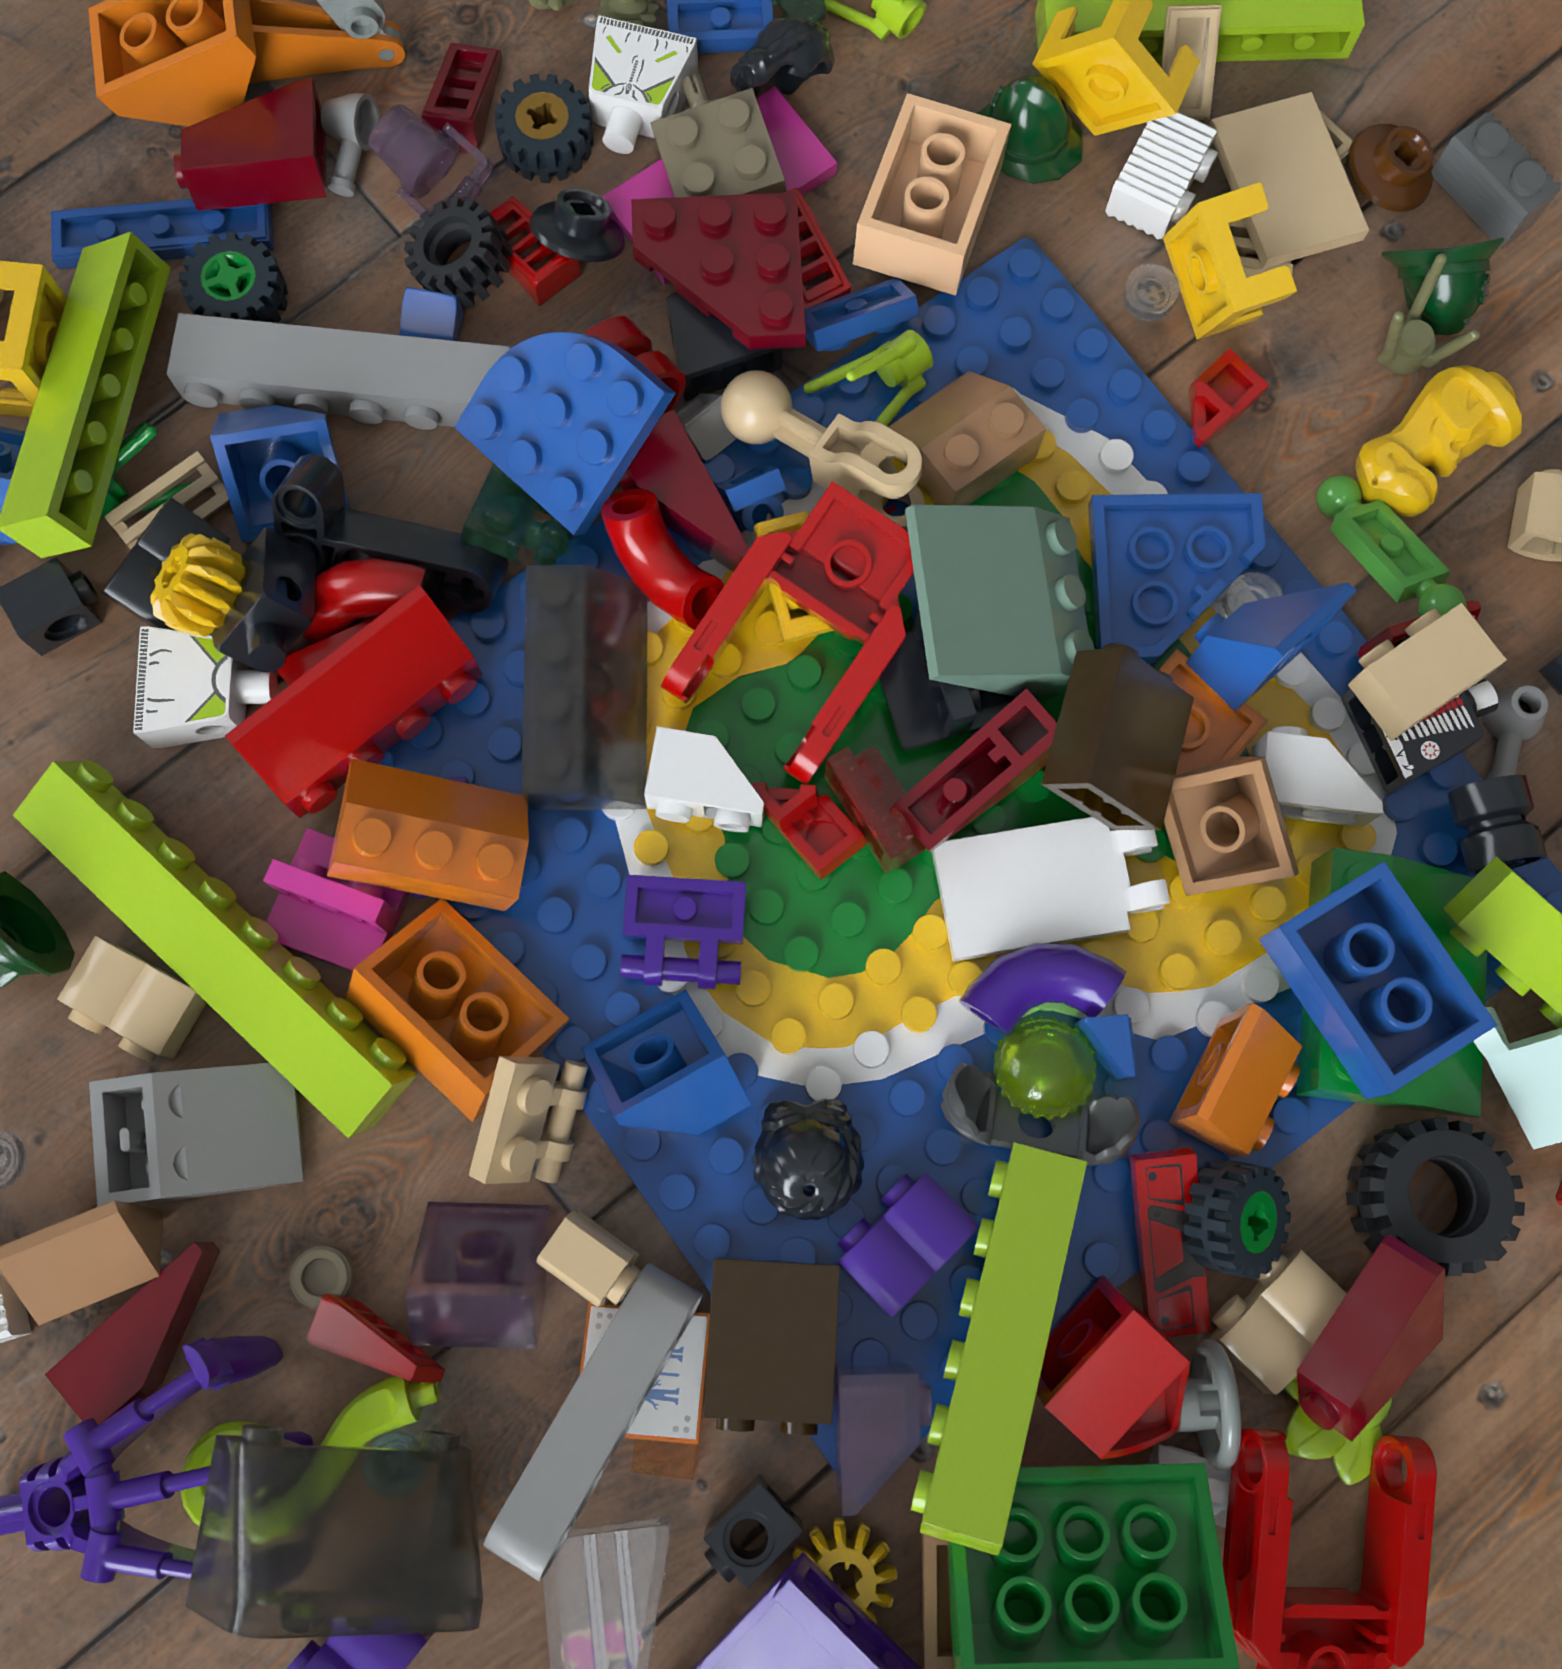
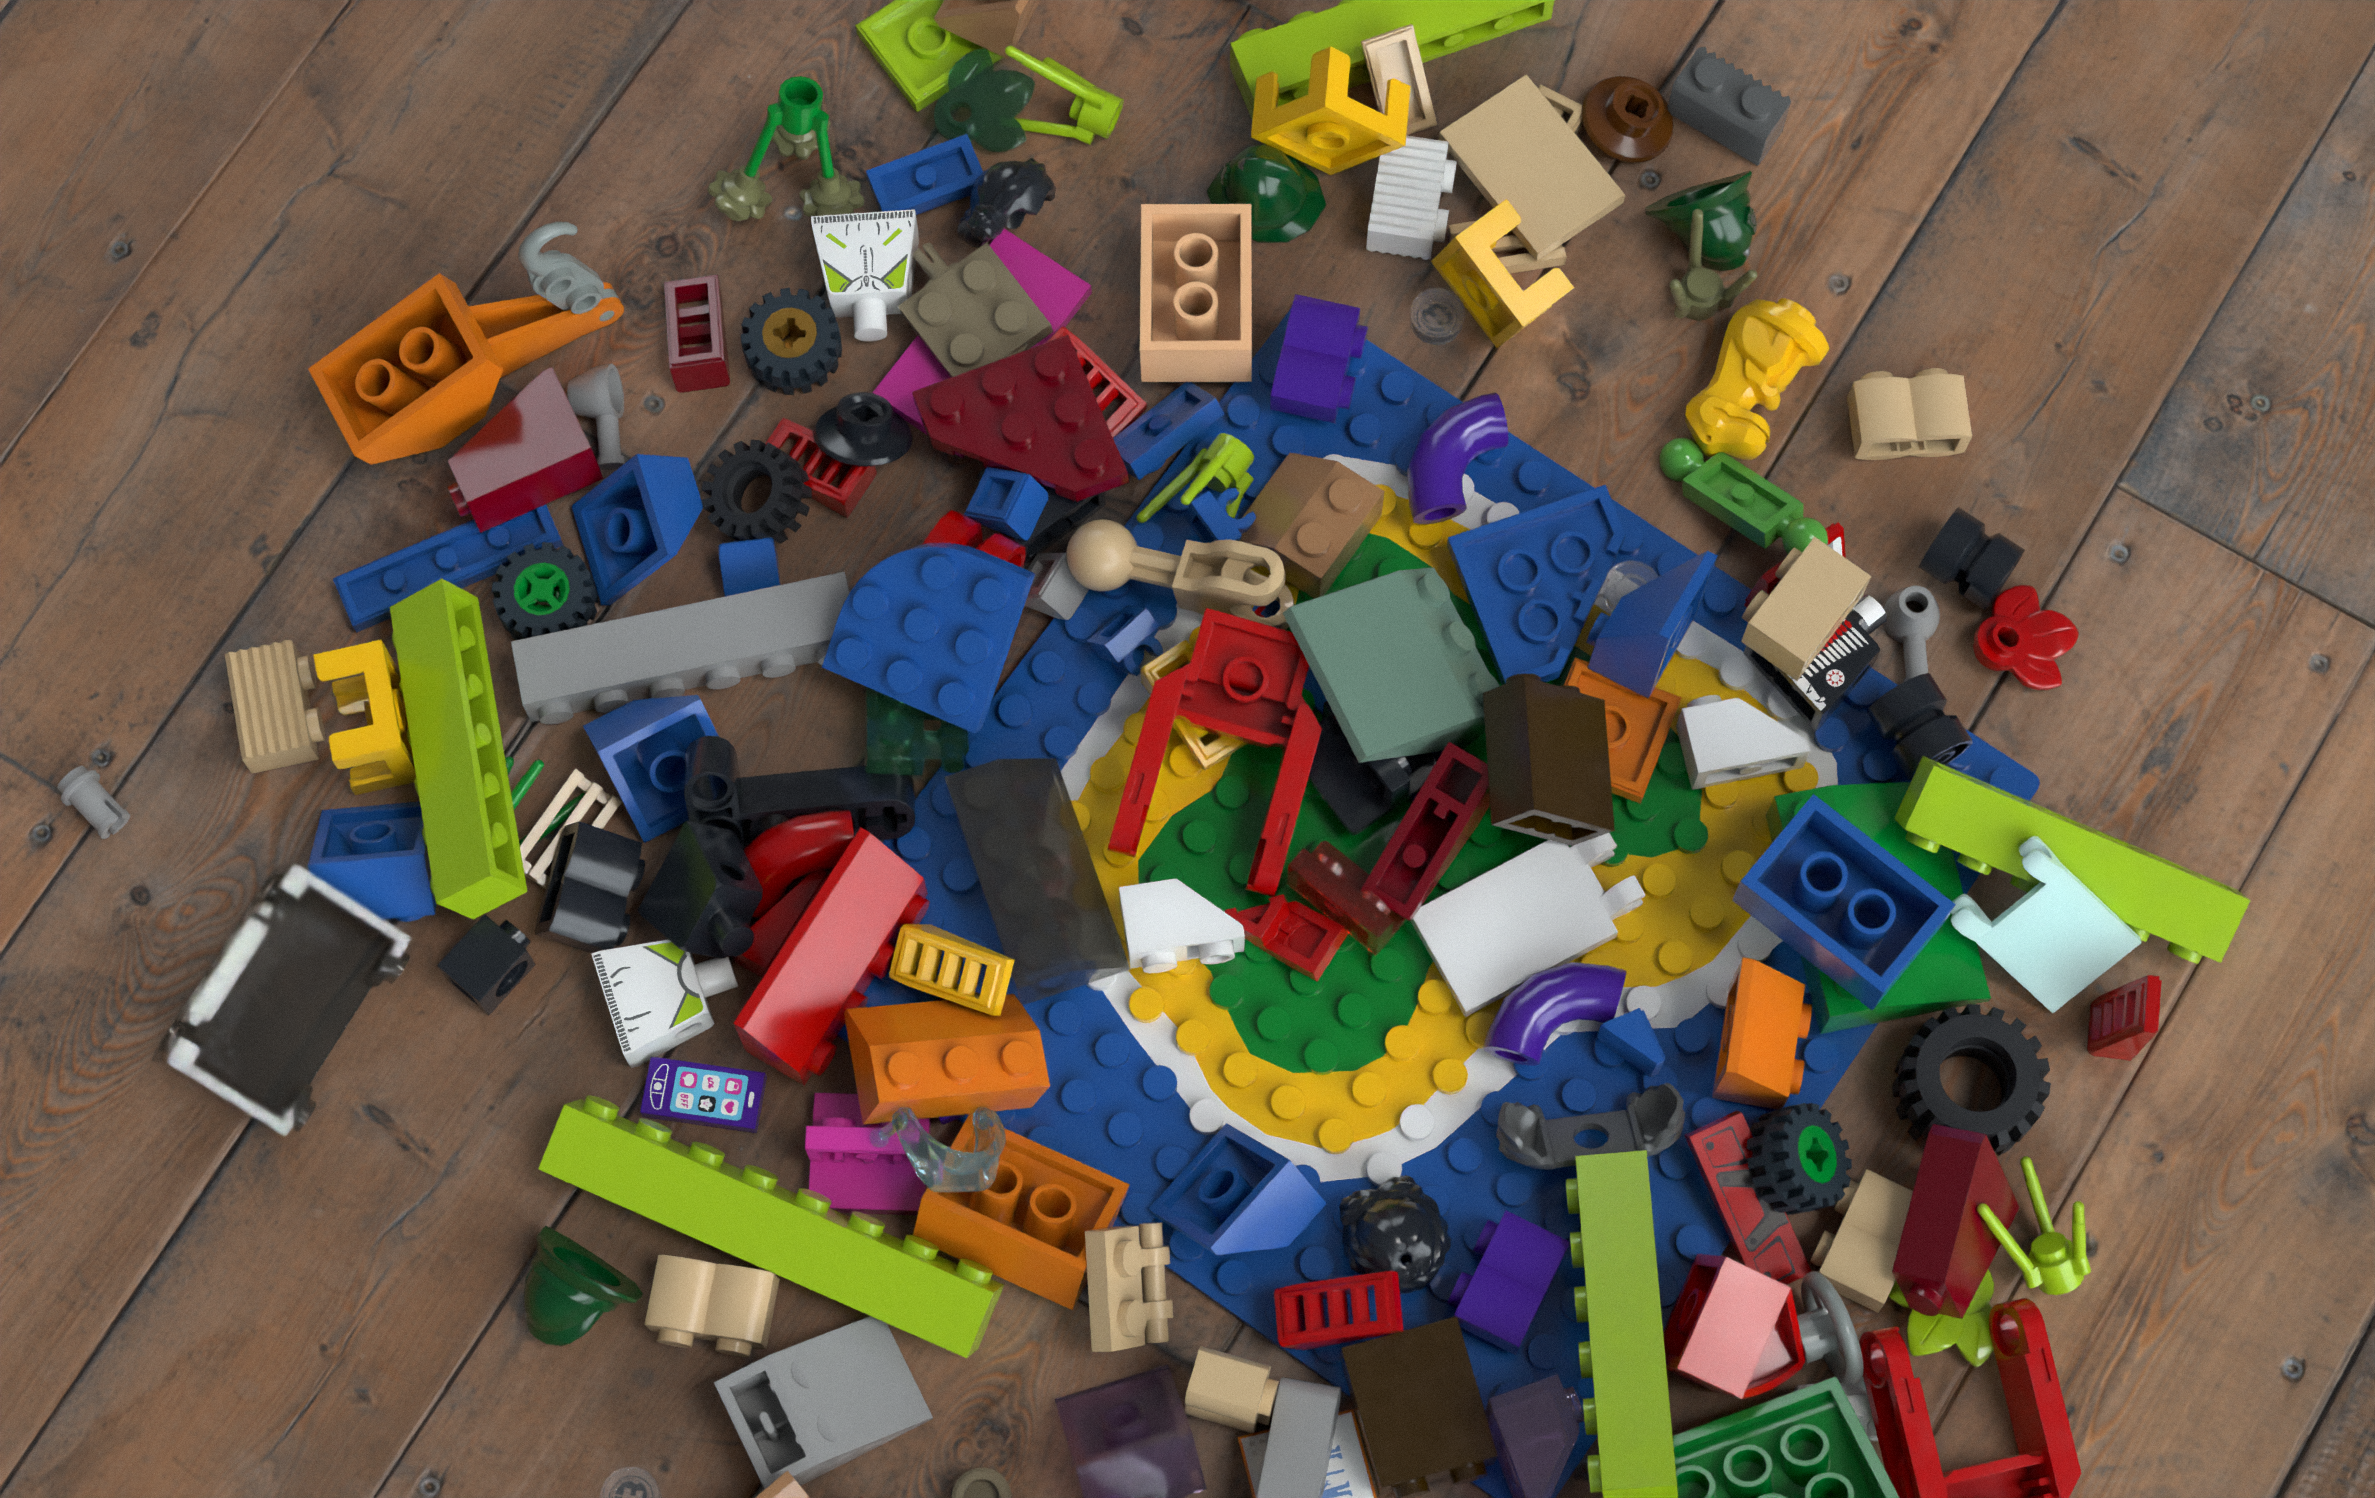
camera: 15 degrees left, 5 degrees down
(197, 585) = (641, 895): yellow gear -> none
(206, 795) = (703, 1094): none -> tile
(342, 239) = (636, 521): none -> blue slope
(385, 951) = (941, 1166): none -> clear light blue helmet
(424, 155) = (679, 406): clear purple piece -> none
(465, 748) = (918, 961): none -> yellow slope
(655, 559) = (1061, 734): red cylinder -> none
(683, 911) = (1202, 1051): dark purple plate -> none
(685, 330) = (1008, 502): none -> blue slope
(685, 492) = (1060, 661): dark red slope -> none
(688, 1209) = (1302, 1316): none -> red slope
(870, 402) = (1211, 520): none -> blue tile
(1023, 290) = (1316, 359): none -> dark purple brick
(1045, 1067) = (1582, 1084): clear neon green hat -> none
(1116, 414) = (1445, 452): none -> dark purple cylinder
(1222, 396) = (1539, 398): red slope -> none
(1228, 826) = (1673, 809): medium nougat slope -> none
(1459, 1403) = (2054, 1261): none -> lime plant

